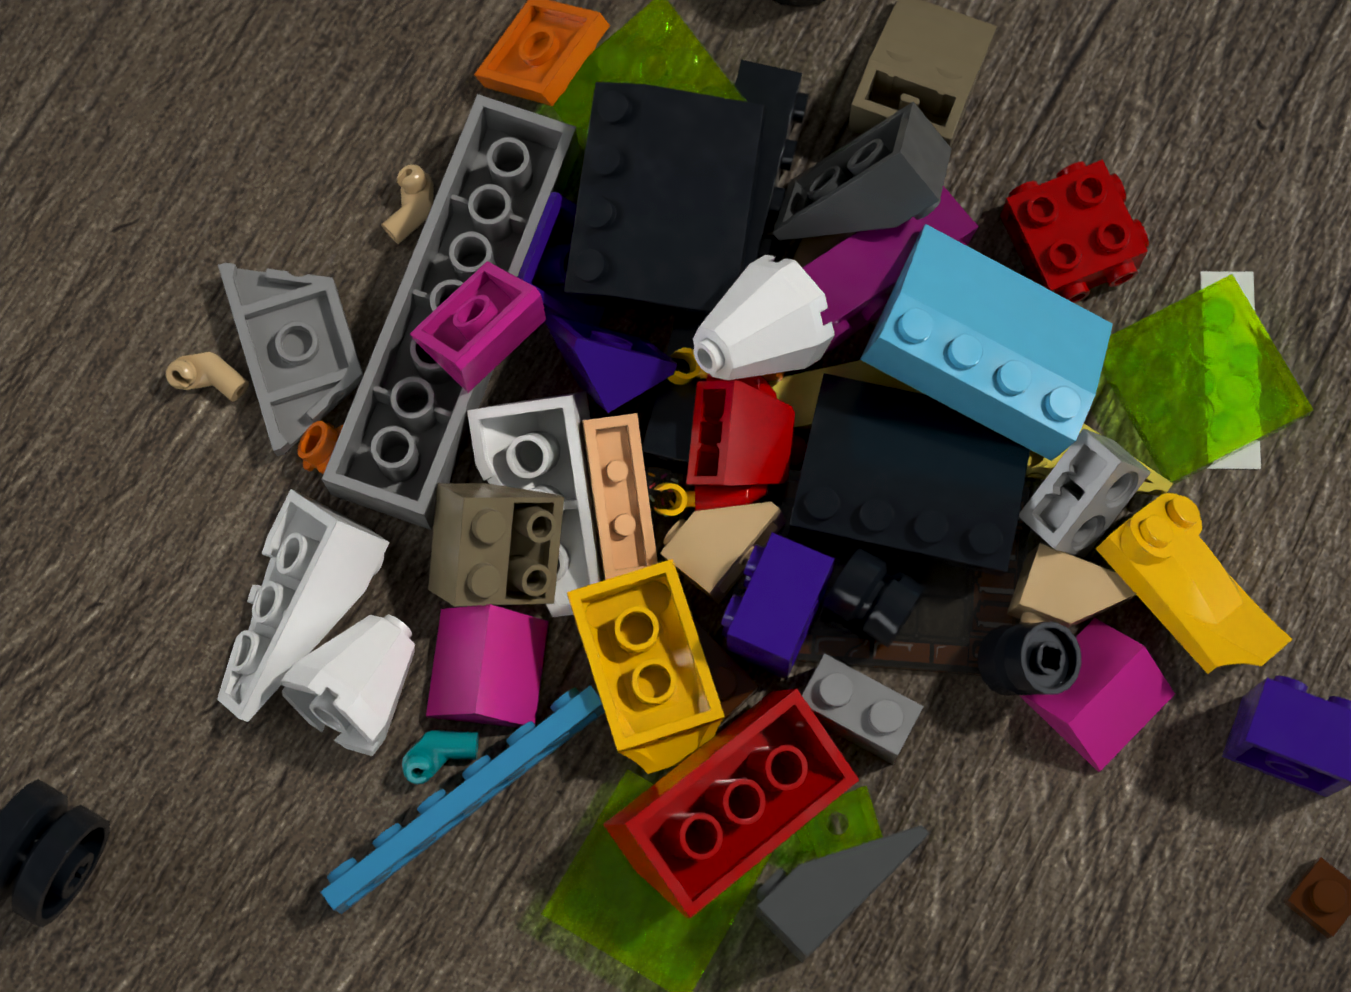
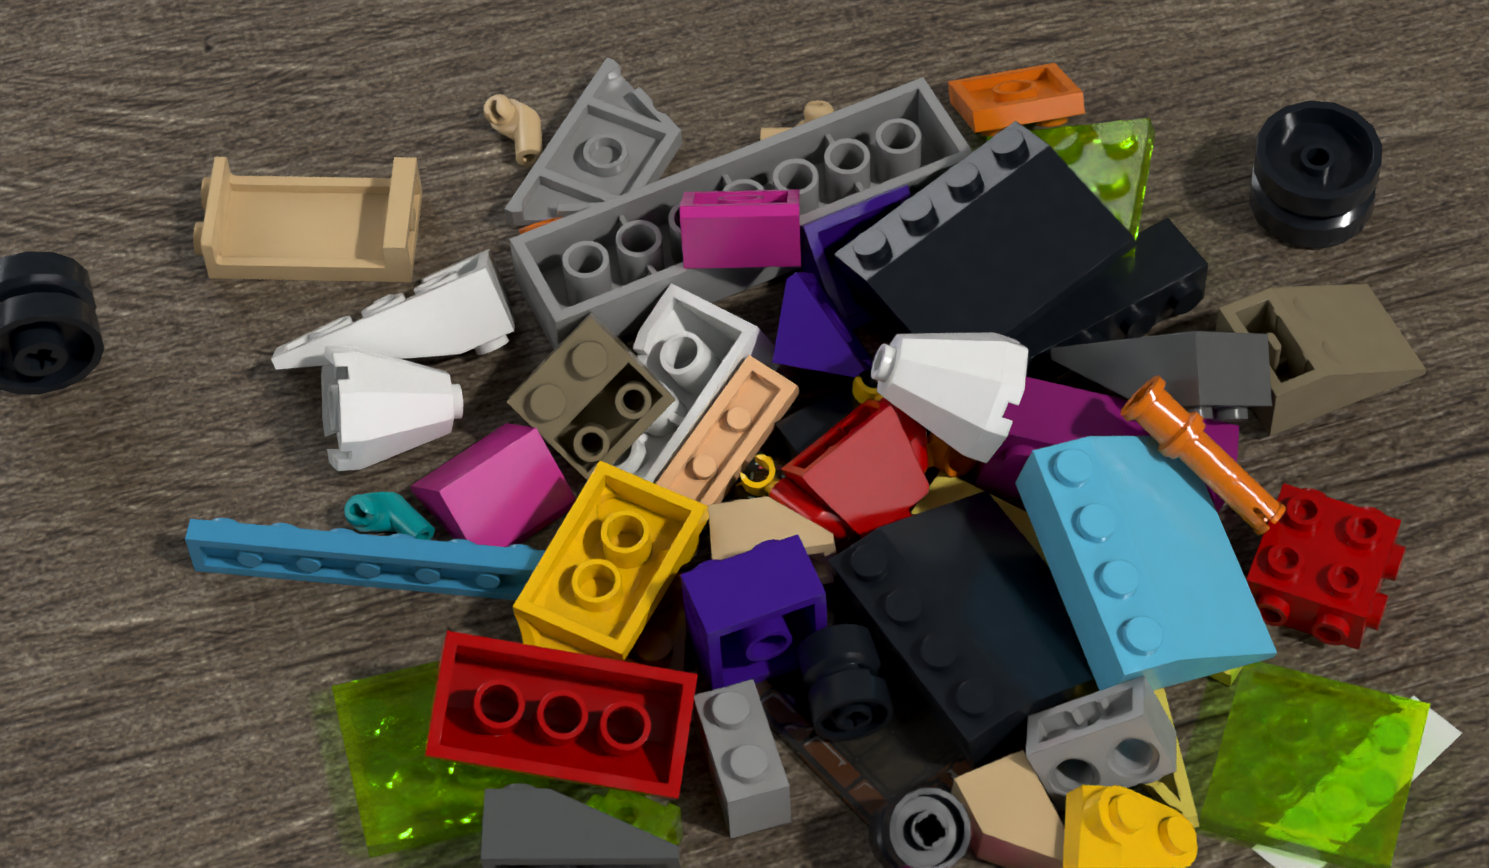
camera: 45 degrees right, 20 degrees down
(139, 585) = (310, 225): none -> tan panel
(945, 231) = (1182, 436): none -> orange pin

